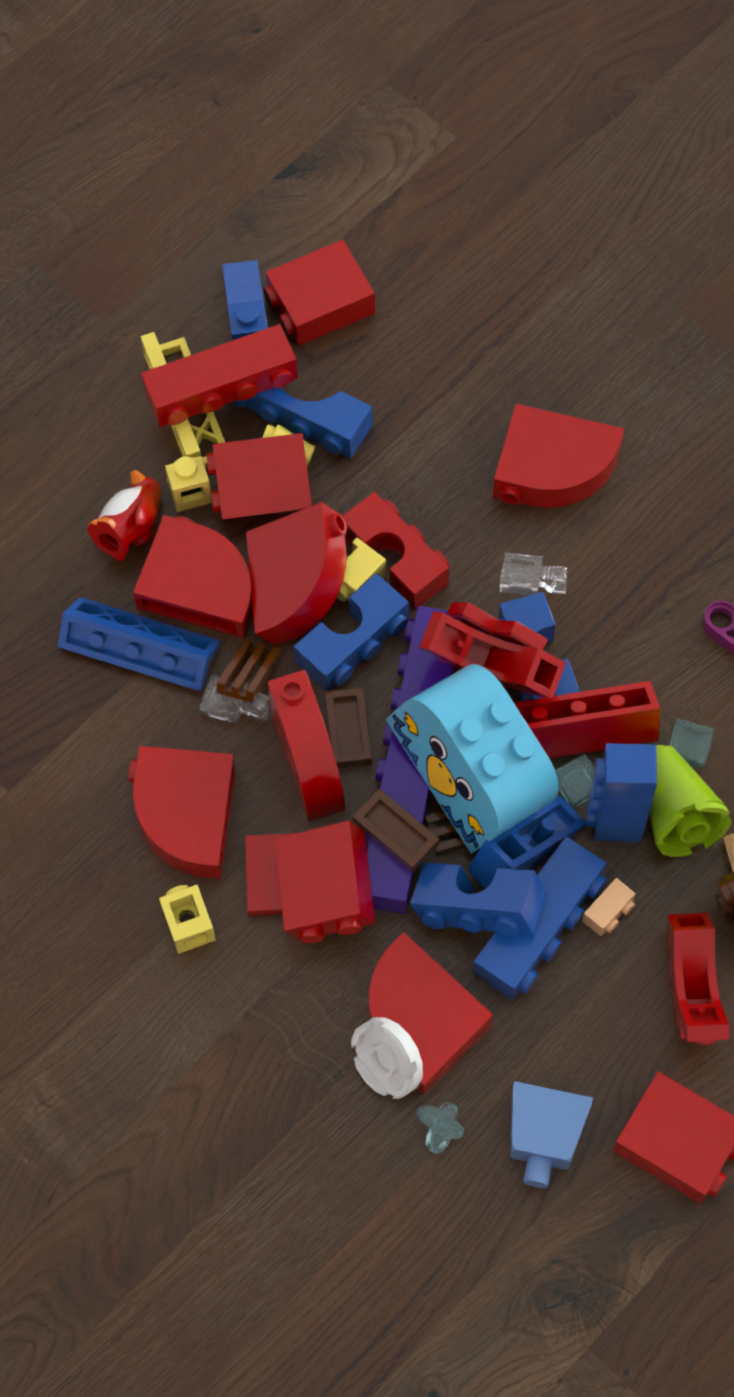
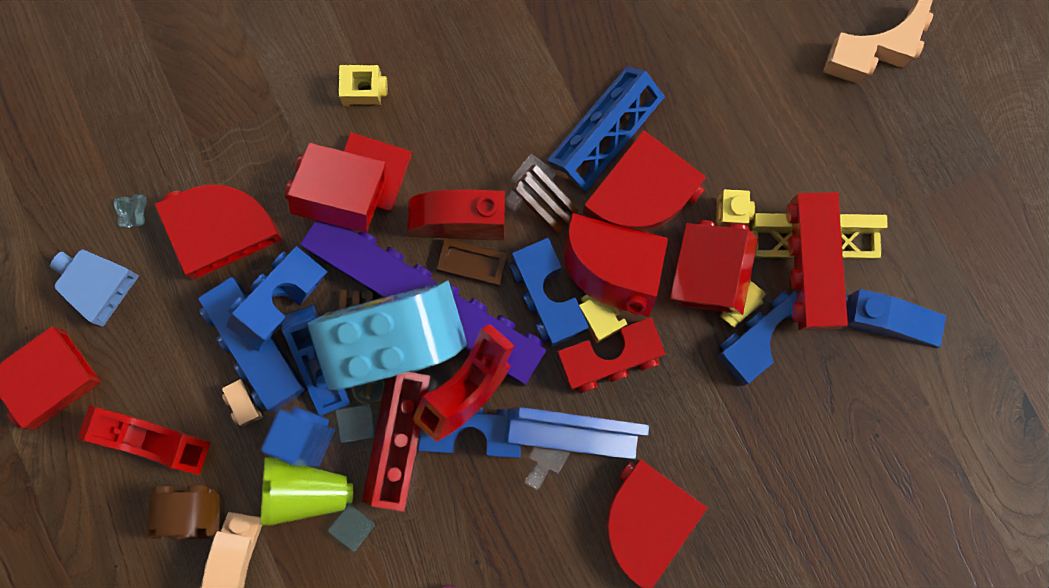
camera: 105 degrees right, 15 degrees up
(127, 517) = (719, 152): red animal -> none
(184, 806) = (450, 112): red brick -> none
(319, 293) = (885, 384): red brick -> none
(387, 1057) = (187, 185): white tile -> none
(395, 830) = (357, 256): reddish brown tile -> none
(494, 552) = (573, 432): none -> fence
(506, 630) = (484, 409): red tile -> none

